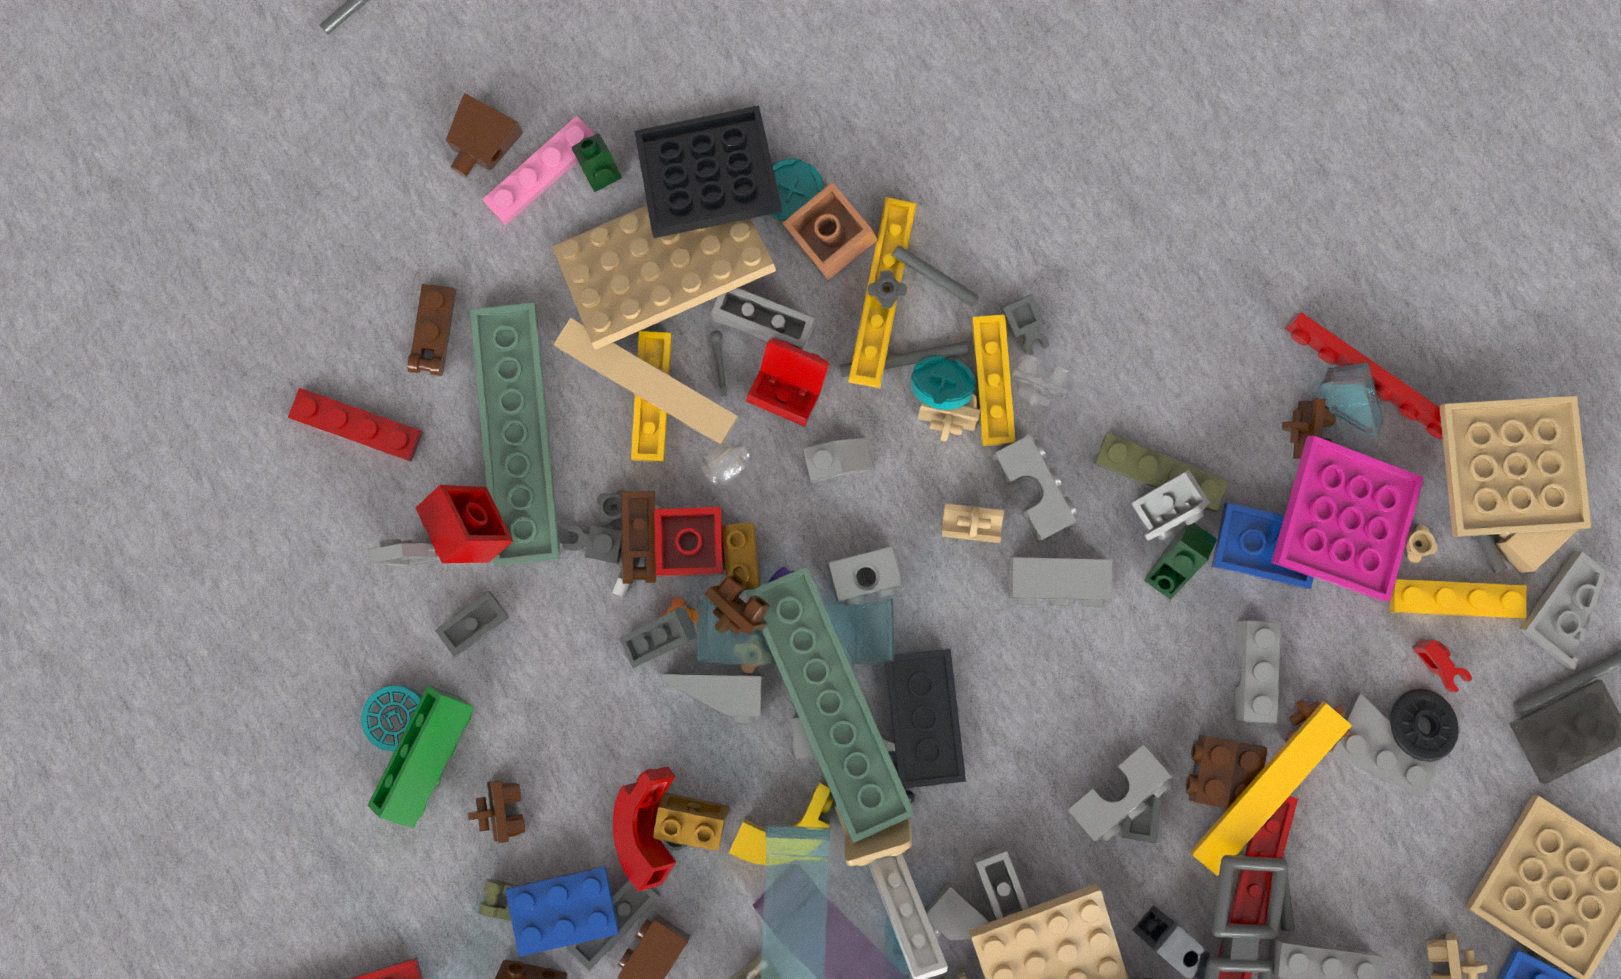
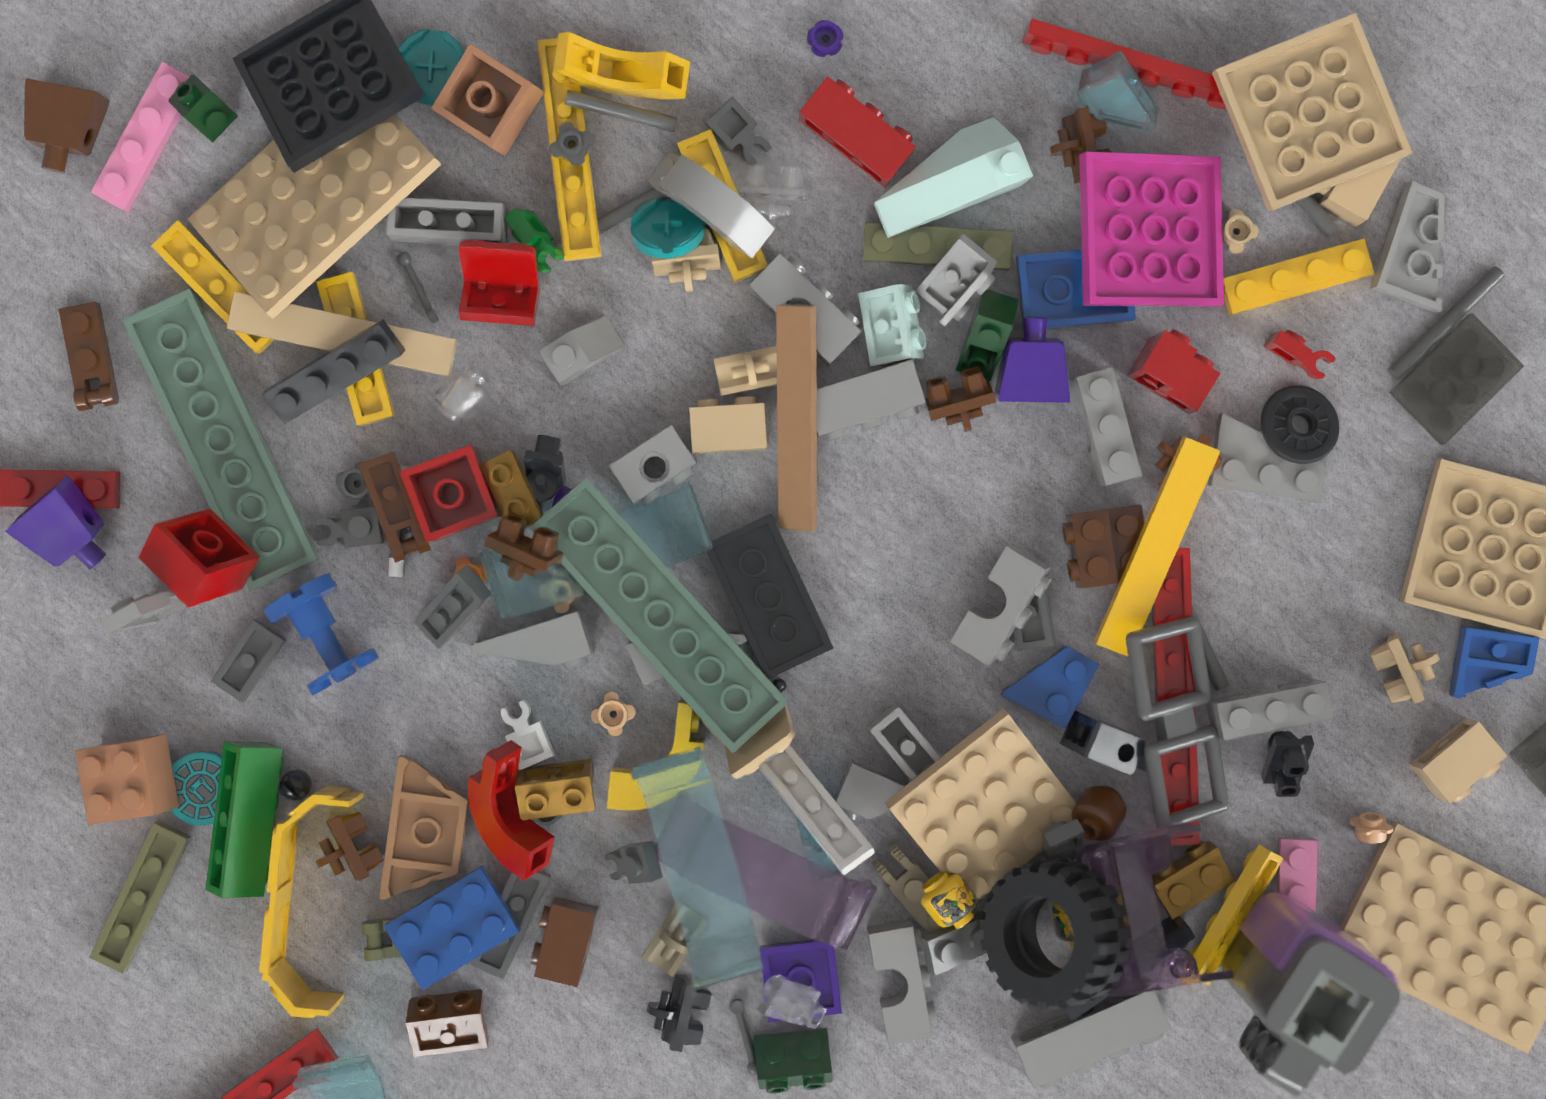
camera: 20 degrees left, 5 degrees up
(310, 793) = (140, 897): none -> olive plate
(336, 689) = (127, 779): none -> nougat brick
(359, 460) = (60, 526): none -> dark purple torso
(405, 908) = (284, 980): none -> yellow windscreen
(478, 738) = (300, 780): none -> black hinge
(539, 608) = (313, 621): none -> blue piece
(550, 296) = (204, 275): none -> yellow plate
(566, 818) = (423, 830): none -> medium nougat wing
(628, 409) = (334, 371): none -> black plate
(683, 767) = (529, 736): none -> white plate
(738, 908) = (637, 862): none -> dark grey plate
(769, 774) = (613, 703): none -> light nougat plate
(775, 546) = (545, 468): none -> black hips
(829, 348) = (531, 231): none -> green plate
(938, 564) = (728, 426): none -> tan brick
(946, 245) = (621, 72): none -> yellow arch
(988, 374) = (712, 202): none -> light grey arch
(999, 575) = (796, 416): none -> medium nougat tile
(1103, 524) = (892, 324): none -> light aqua bracket
(1125, 356) = (857, 131): none -> red brick
(1131, 272) = (828, 29): none -> dark purple plate
(1140, 610) = (961, 403): none -> reddish brown hips
(1144, 878) = (1054, 686): none -> blue wing
(1202, 418) = (959, 174): none -> light aqua wedge
(1211, 600) = (1033, 367): none -> dark purple torso
(1331, 643) = (1174, 370): none -> red brick

